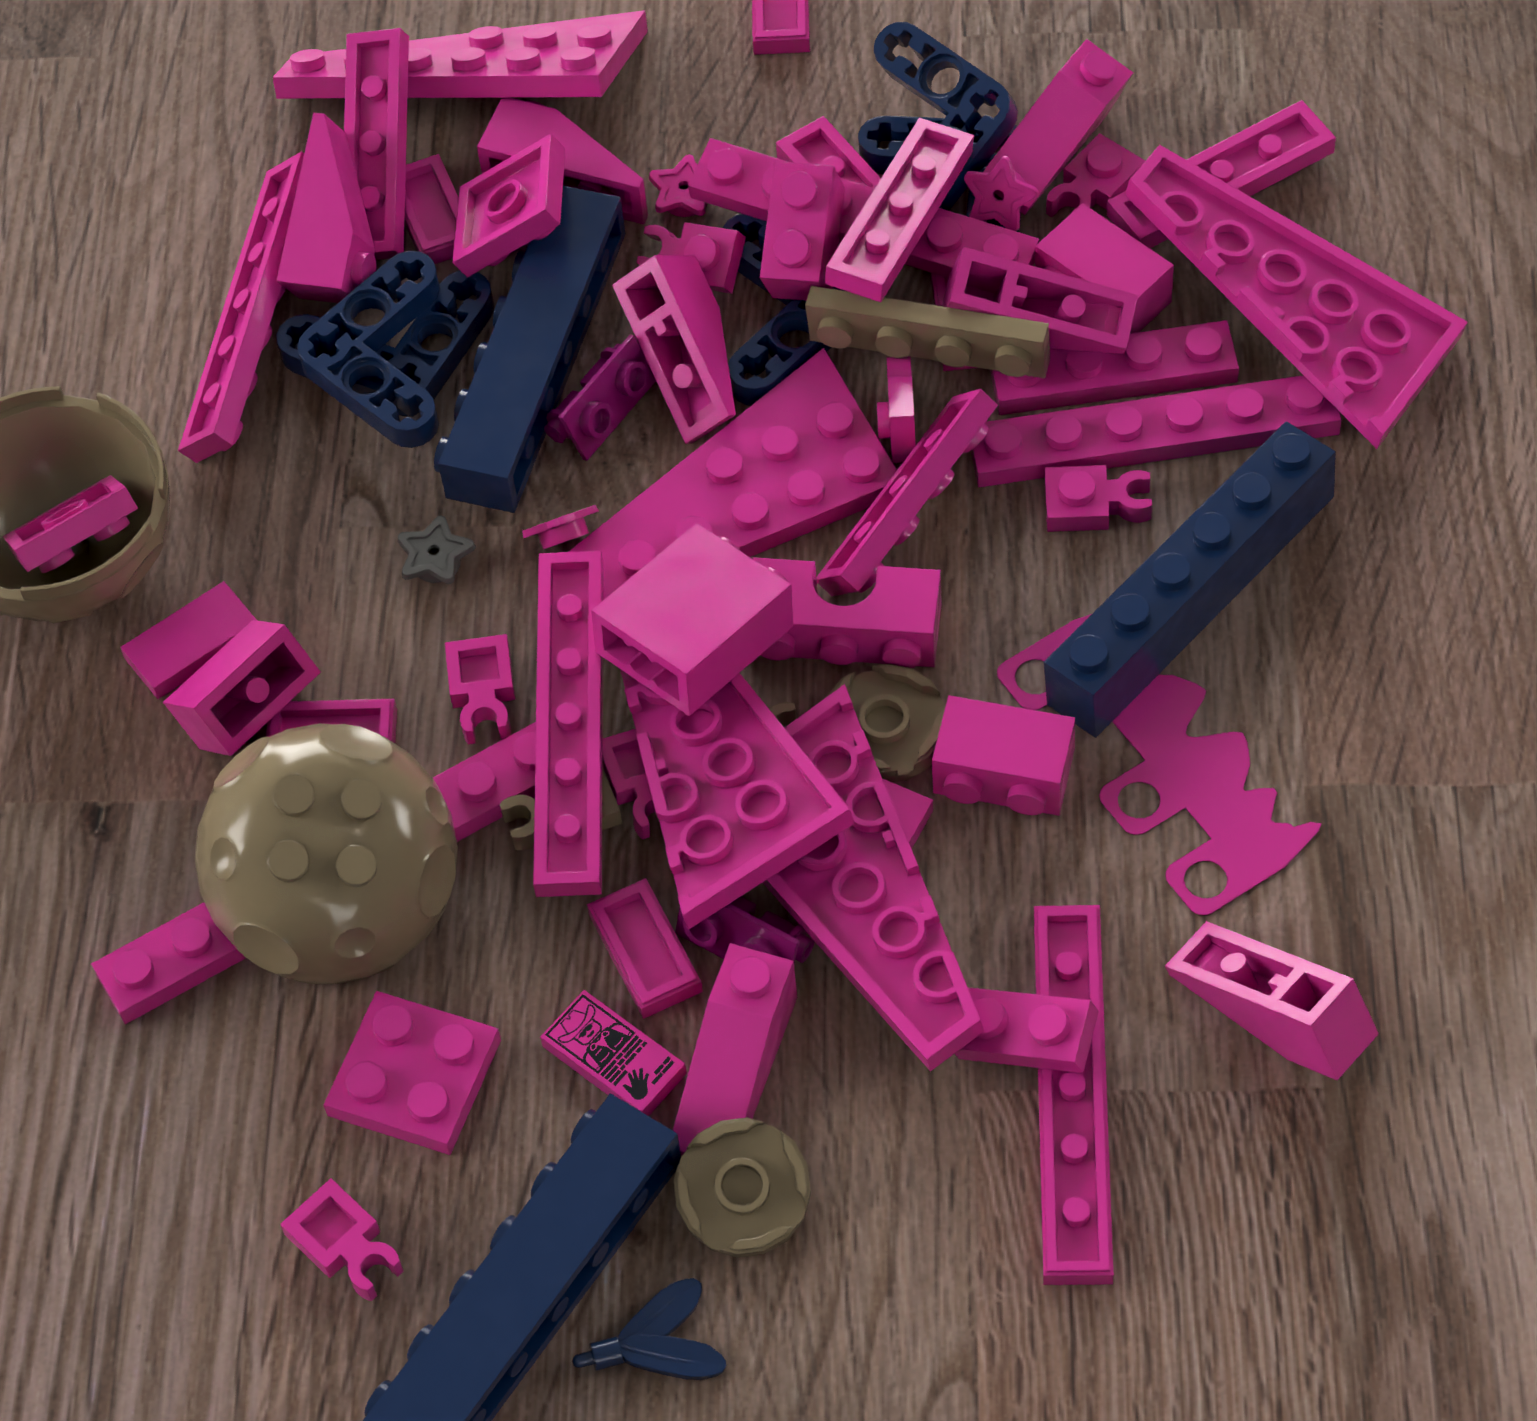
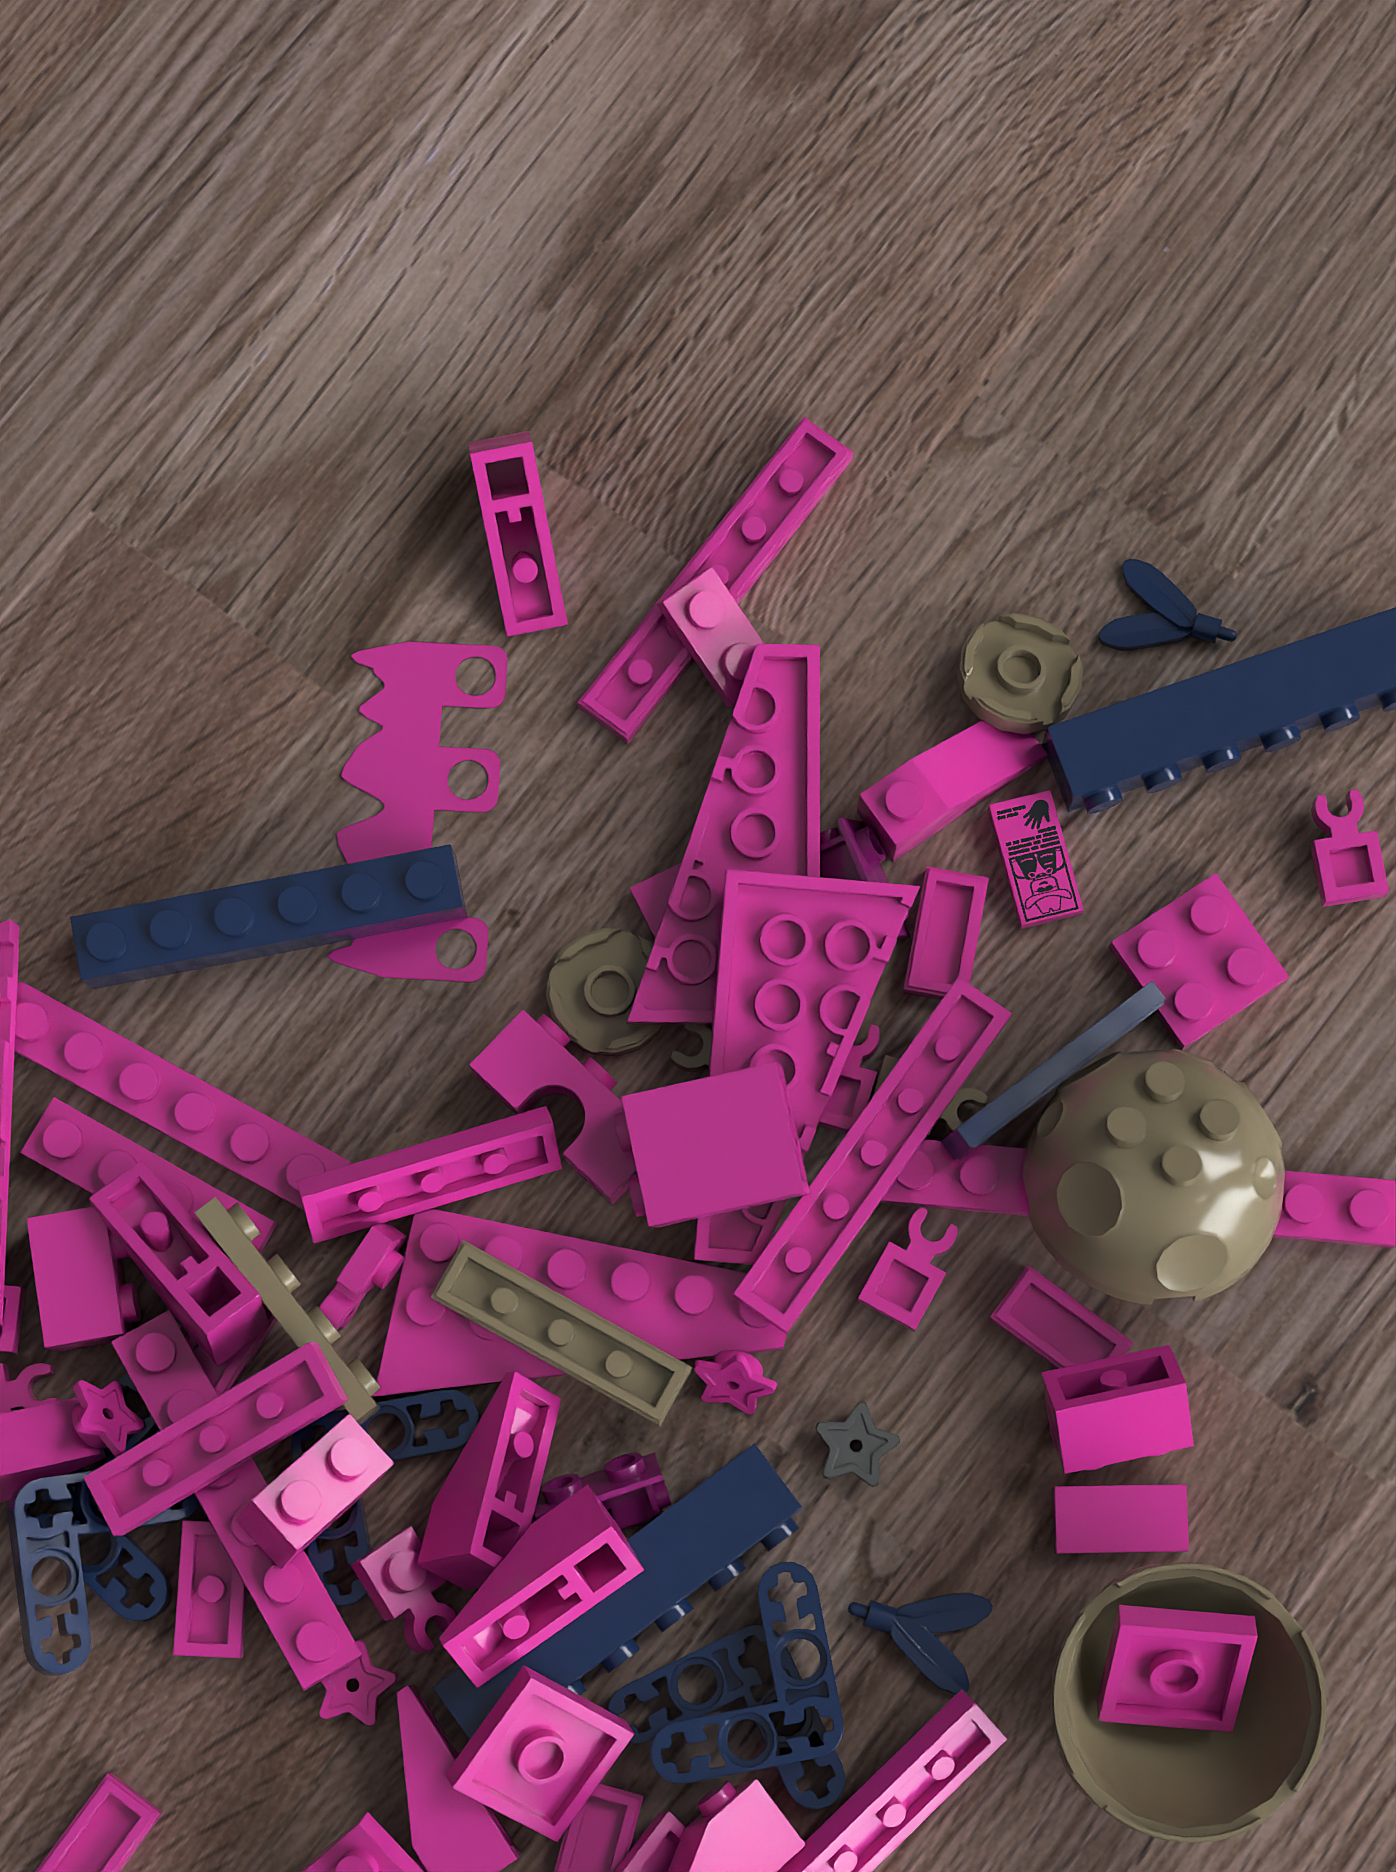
camera: 145 degrees left, 20 degrees up
(297, 479) = (914, 1627): none -> dark blue piece
(468, 880) = (1053, 1071): none -> dark blue tile
(587, 286) = (541, 1585): none -> dark pink slope
(715, 459) = (561, 1333): none -> dark tan tile
(1003, 756) = (549, 875): dark pink brick -> none
(1084, 498) = (280, 1078): dark pink plate -> none

